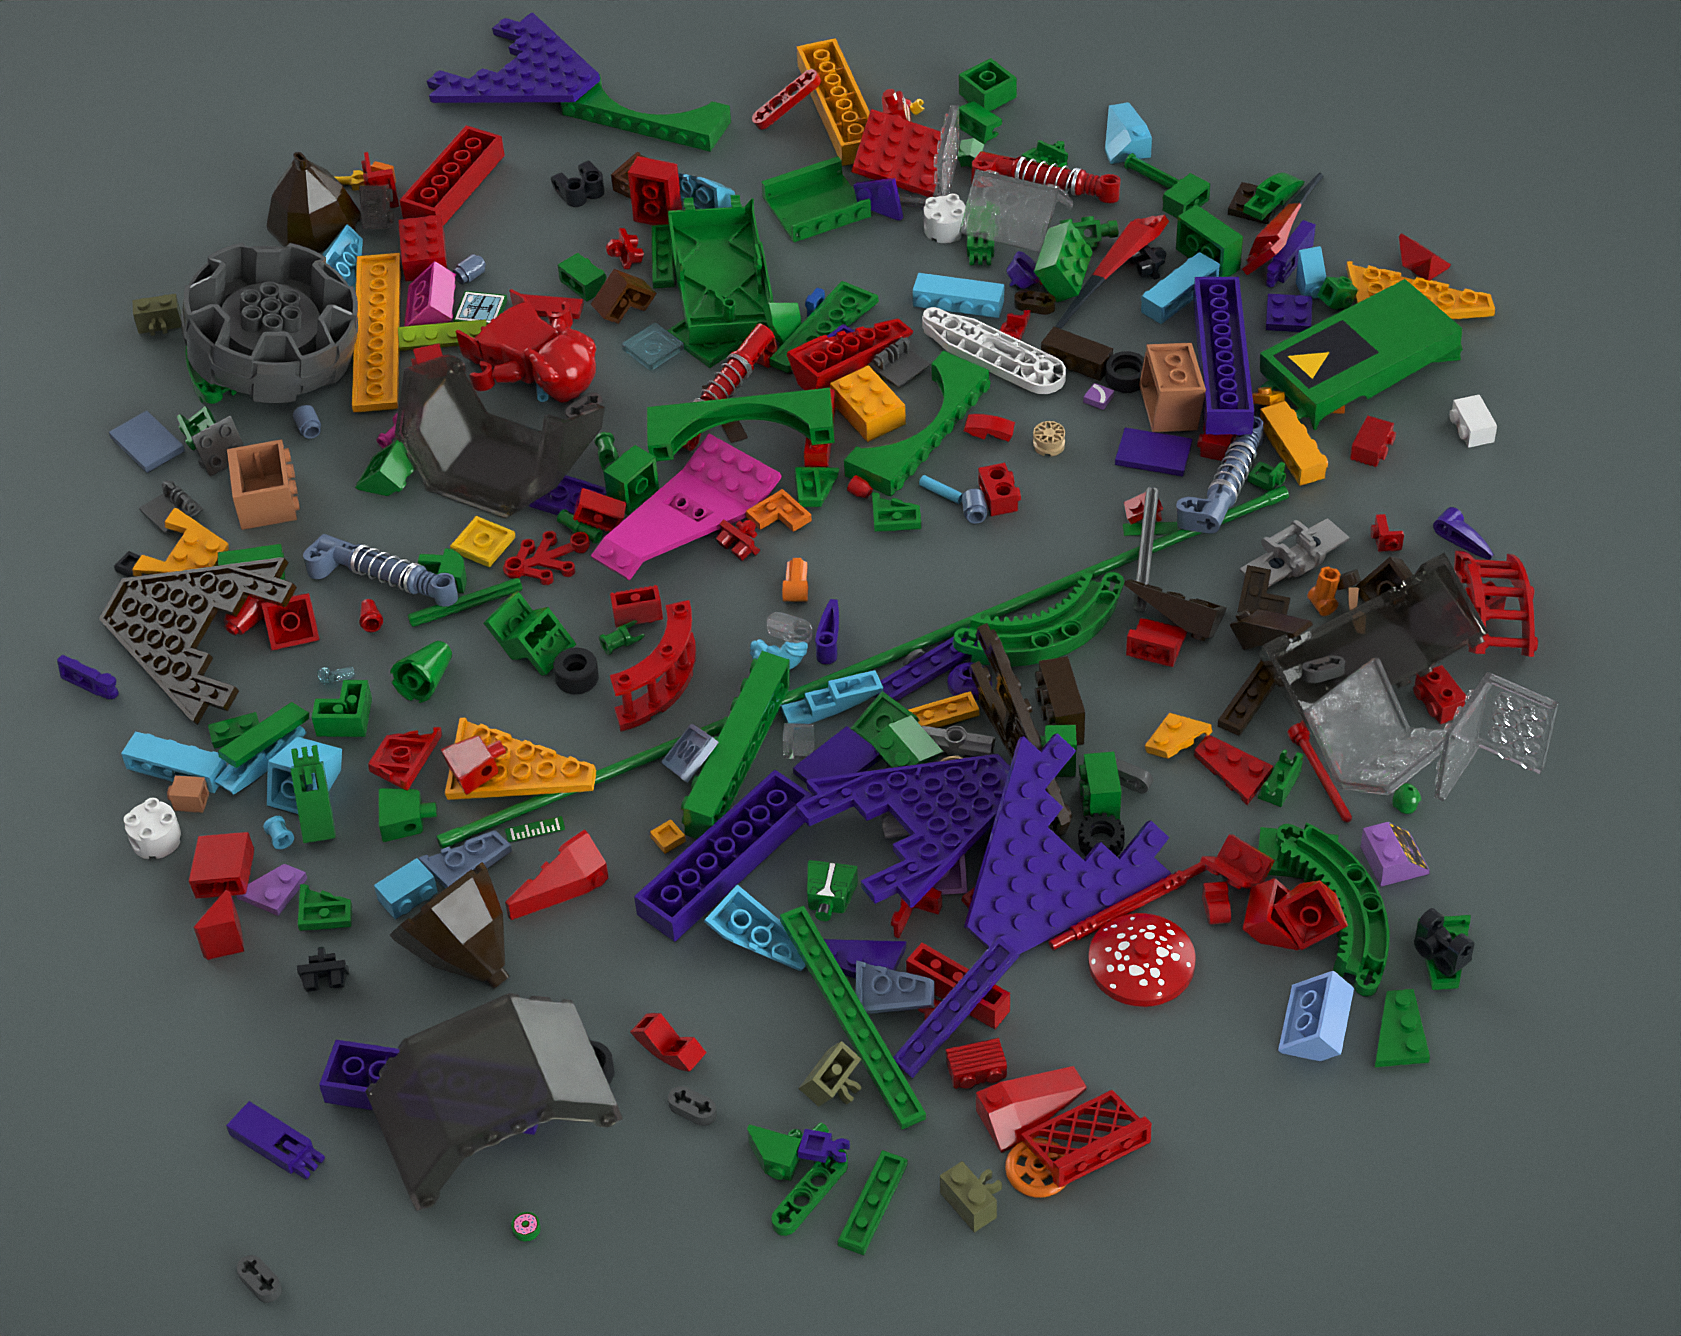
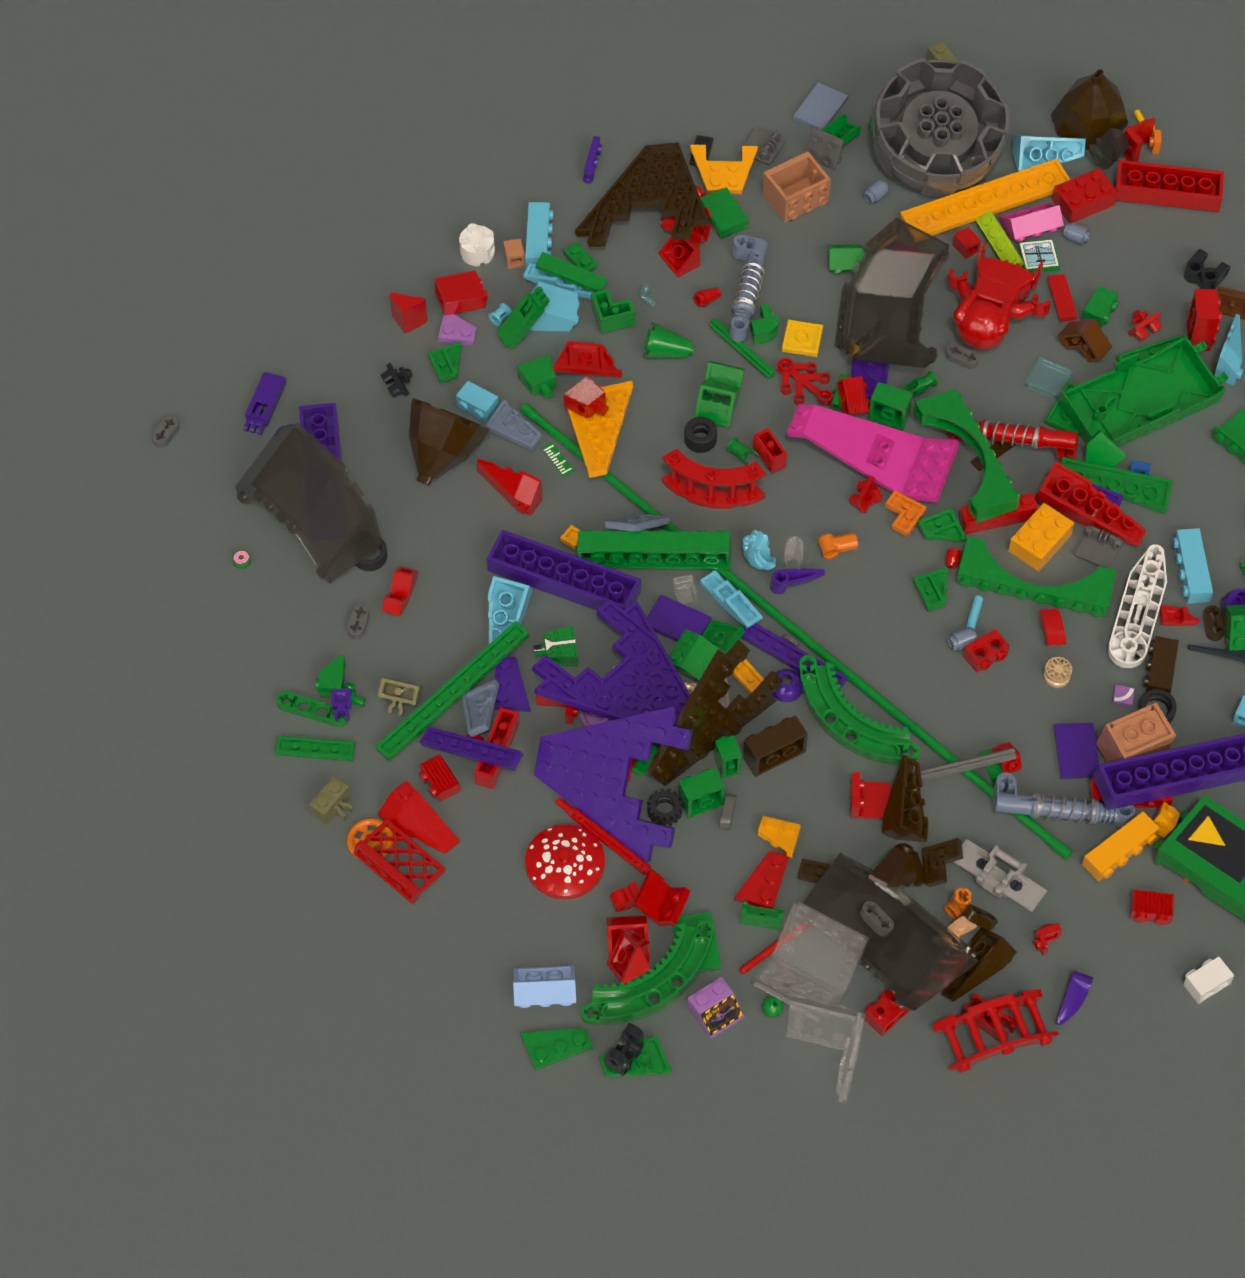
camera: 70 degrees right, 10 degrees up
(1267, 476) = (1079, 837): green bracket -> none

